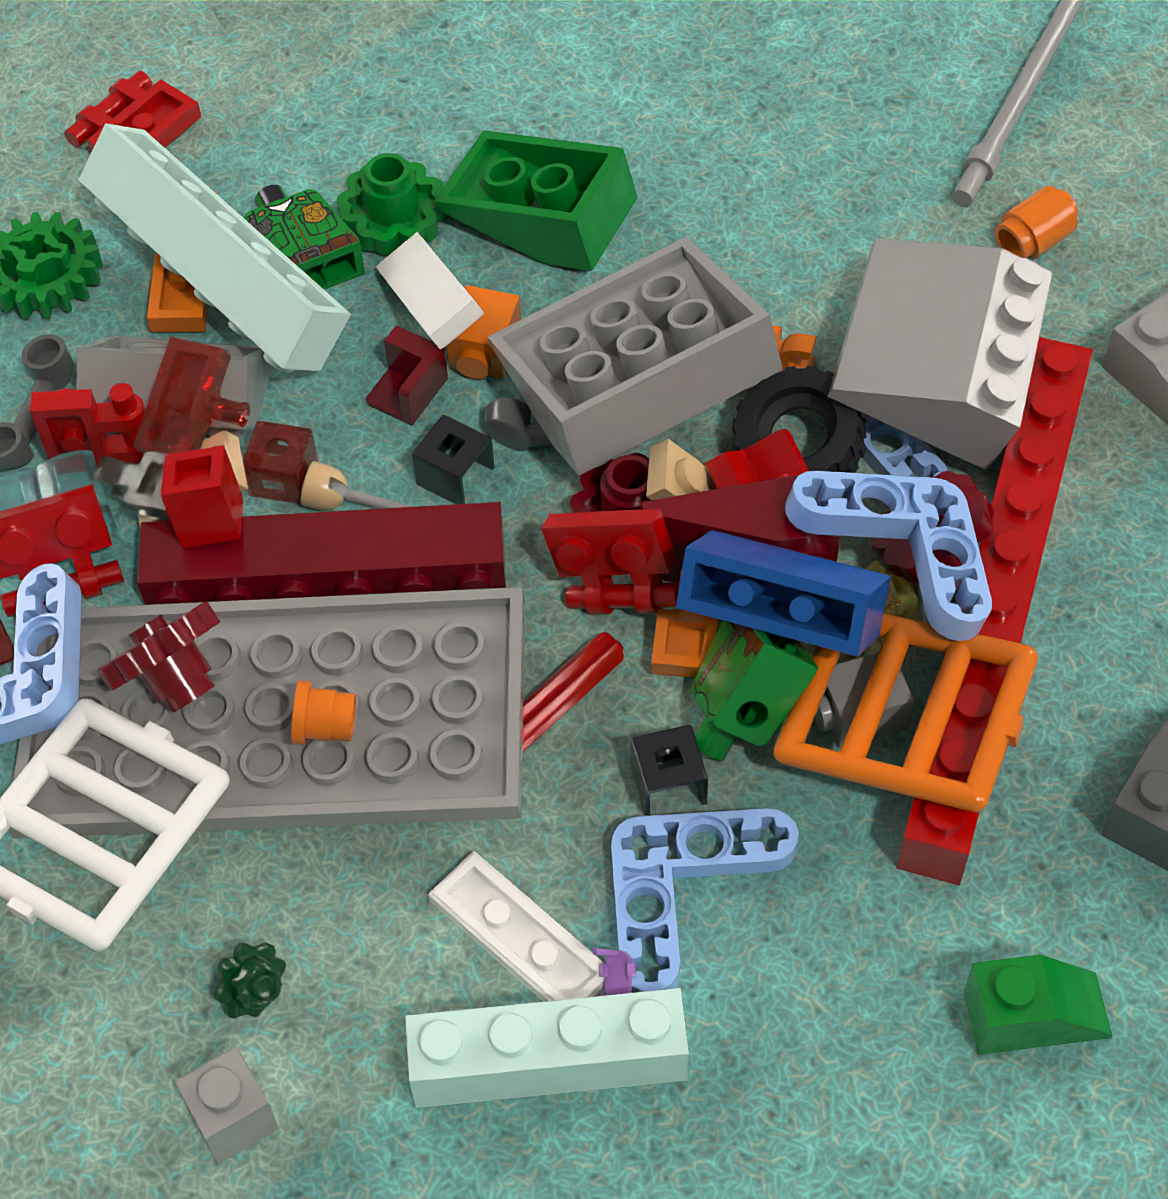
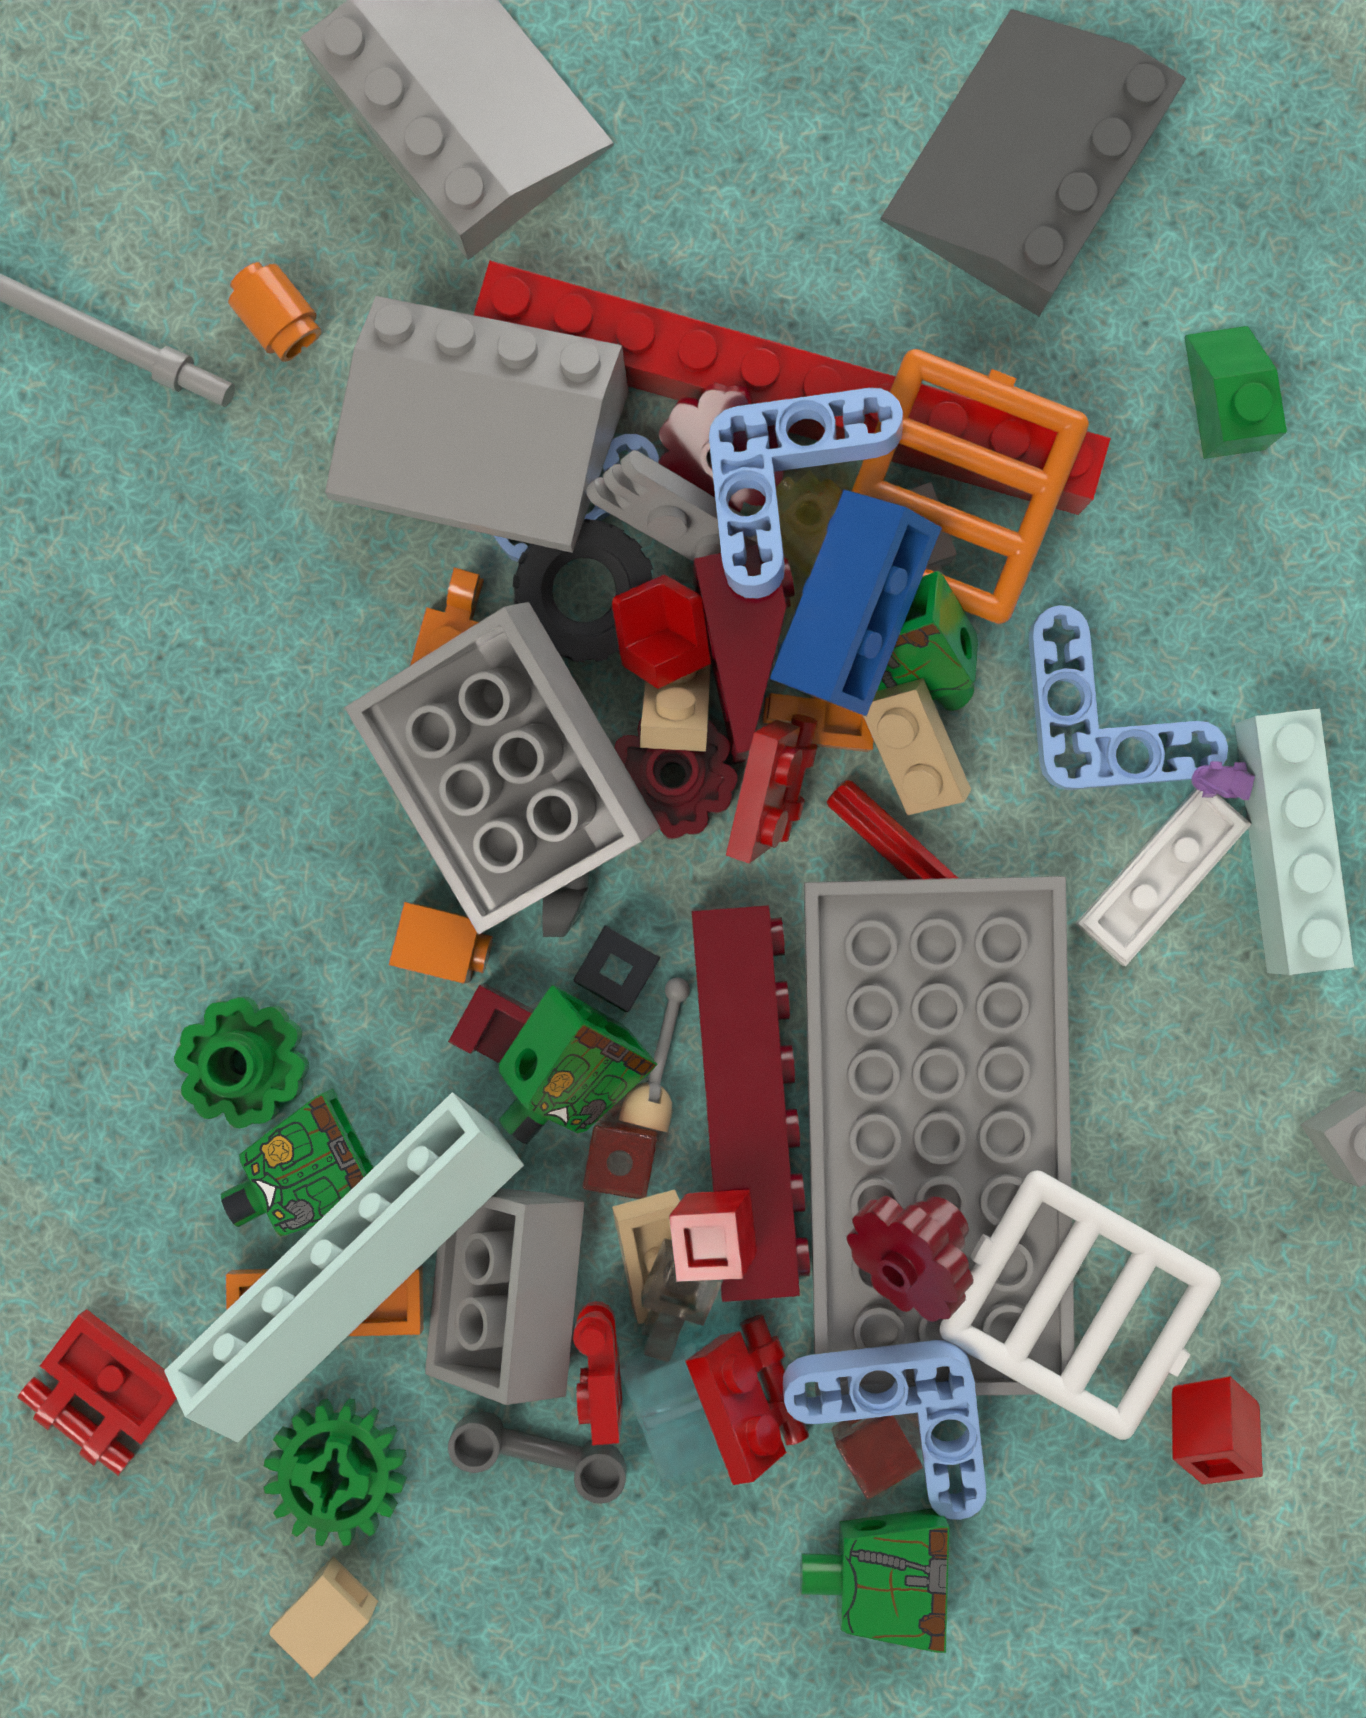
camera: 95 degrees left, 30 degrees up
(187, 399) = (585, 1266): clear red plate -> none
(249, 980) = (1224, 1131): dark green plant -> none
(322, 714) = (975, 1079): orange piece -> none
(368, 415) = (569, 1066): none -> green torso
(429, 291) = (391, 1007): white tile -> none
(542, 196) = (236, 887): green slope -> none
(652, 691) = (916, 748): none -> tan plate
(661, 747) = (975, 735): black piece -> none
(882, 452) = (661, 505): none -> light grey hinge

